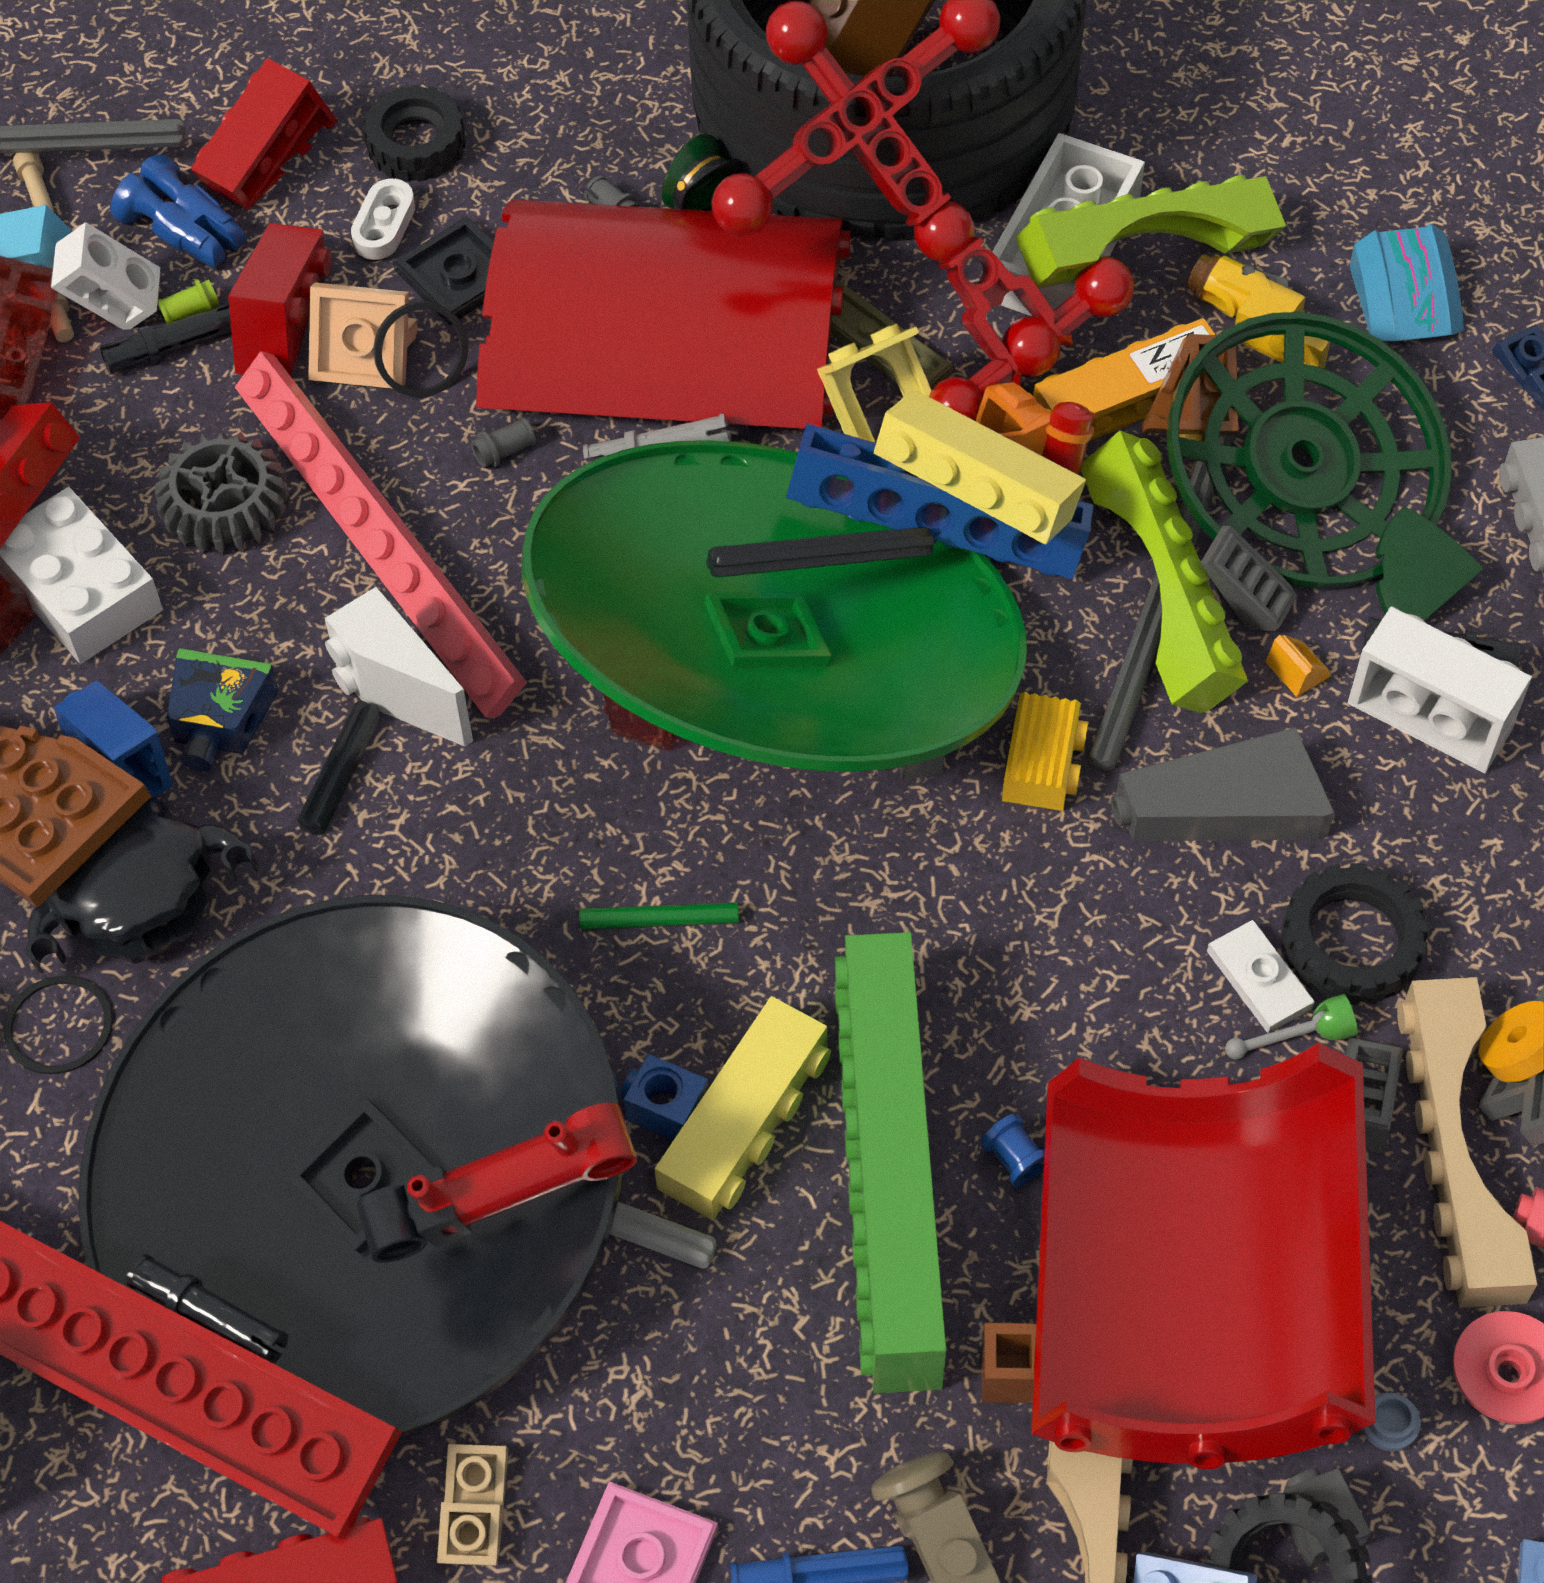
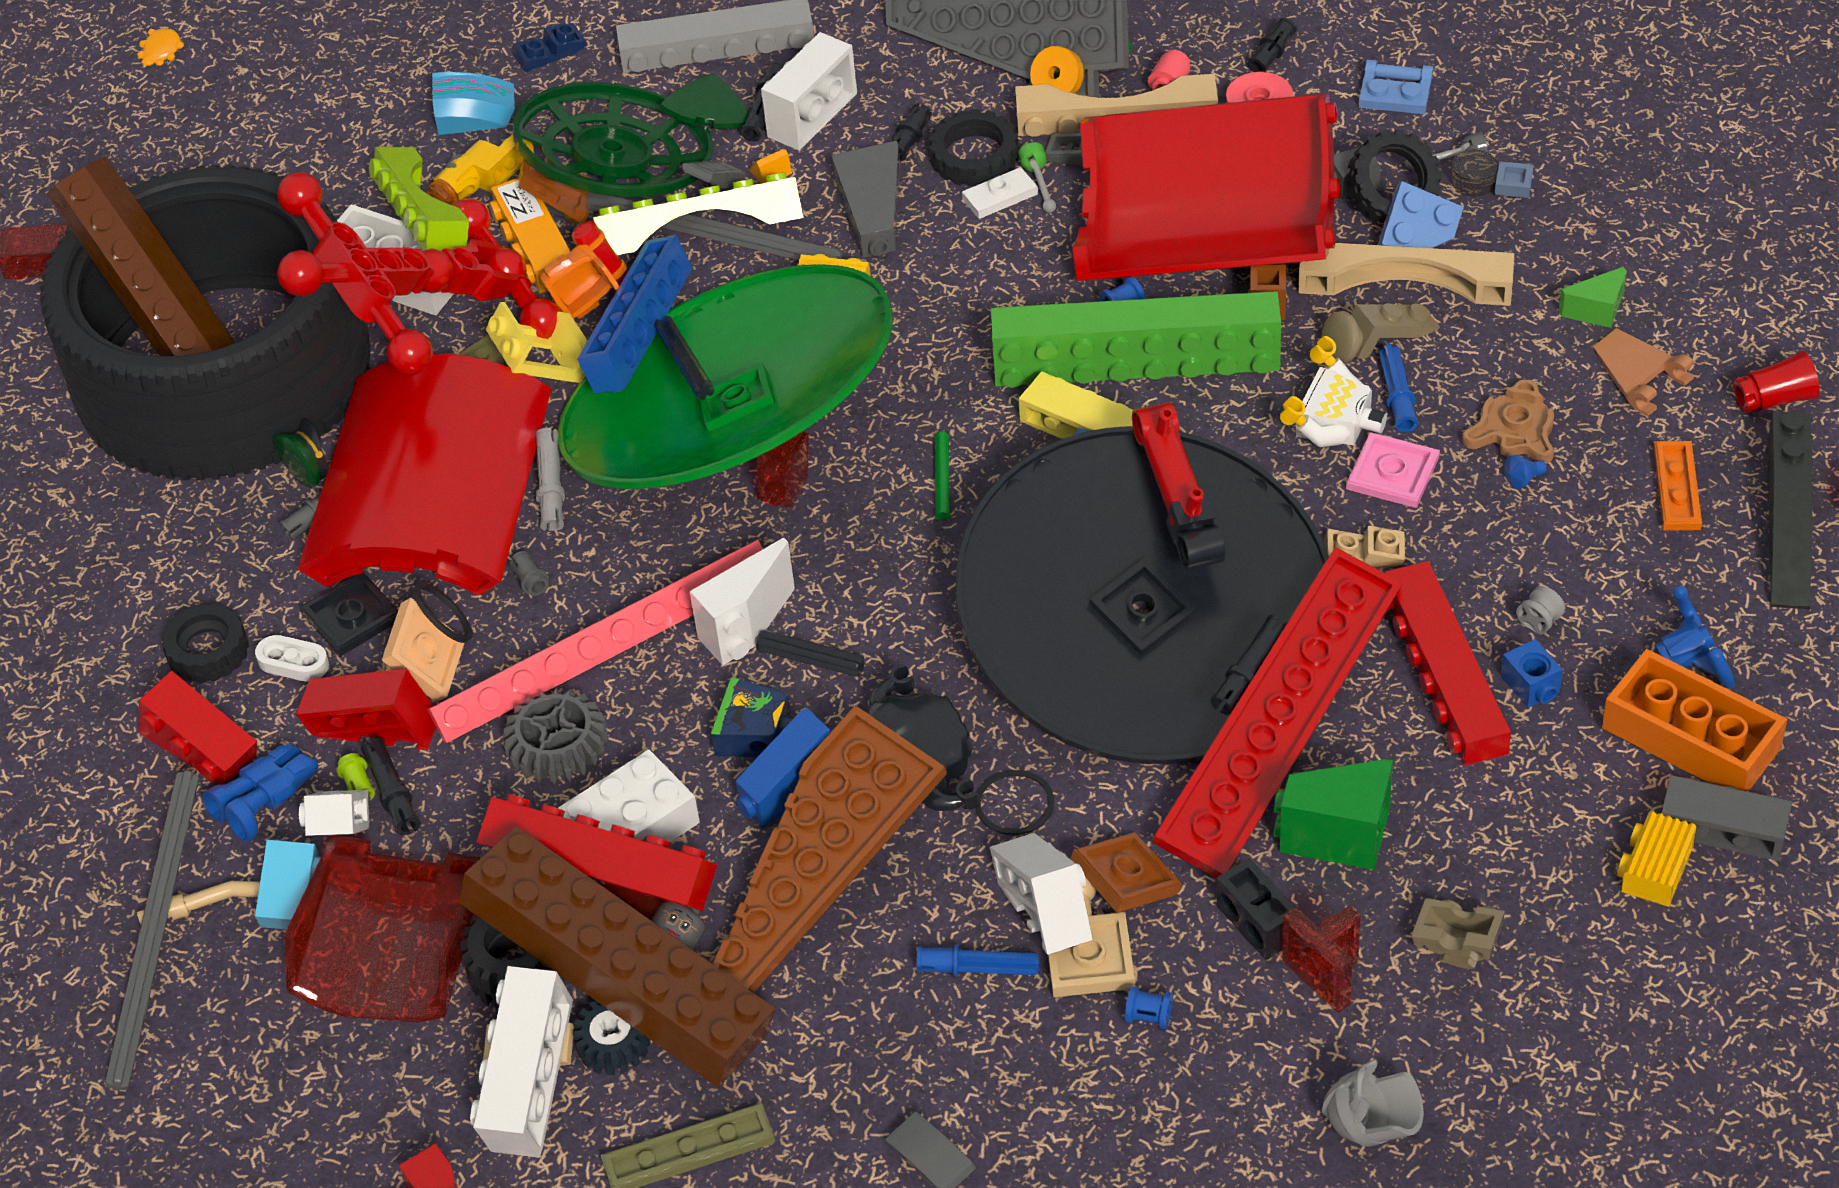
camera: 85 degrees left, 10 degrees down
(760, 1462) = (1334, 405): none -> white torso
(979, 466) = (628, 270): light yellow brick -> none
(1388, 844) = (910, 130): none -> black pin

